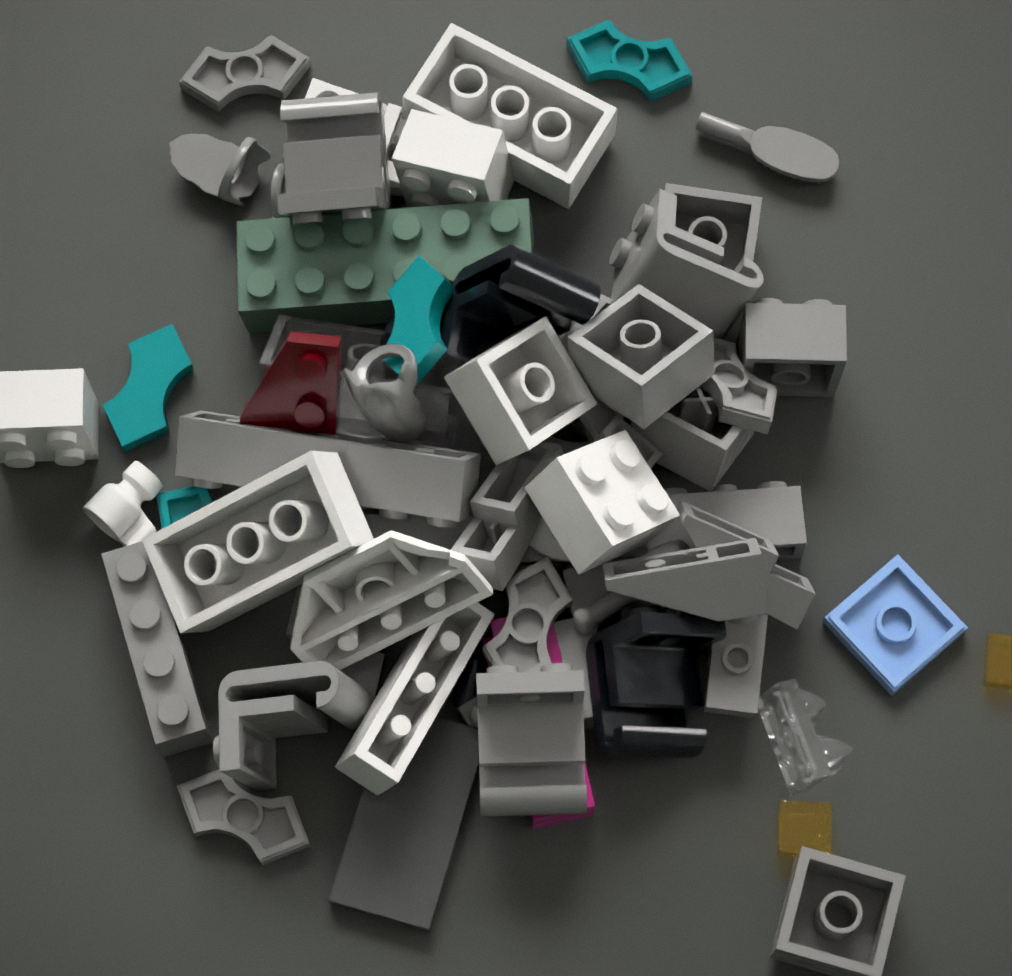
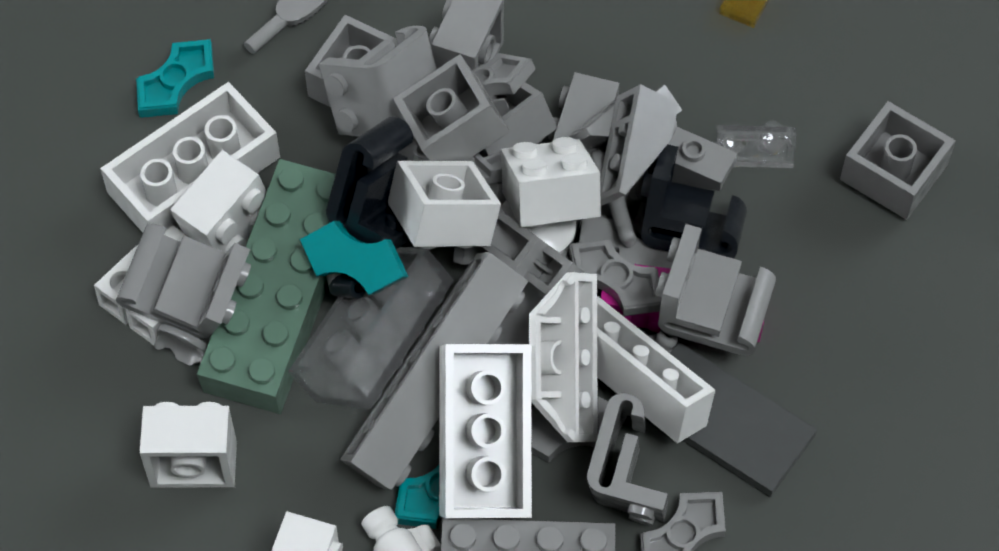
camera: 70 degrees left, 10 degrees down
(155, 247) = (188, 445): none -> white brick
(156, 368) = (283, 488): teal tile -> none
(219, 165) = (130, 385): light grey piece -> none
(225, 76) = (47, 362): light grey tile -> none
(299, 386) = (372, 356): dark red wing -> none
(388, 405) = (420, 298): light grey piece -> none
(804, 825) = (821, 166): clear yellow tile -> none
(894, 624) = (692, 61): light blue tile -> none

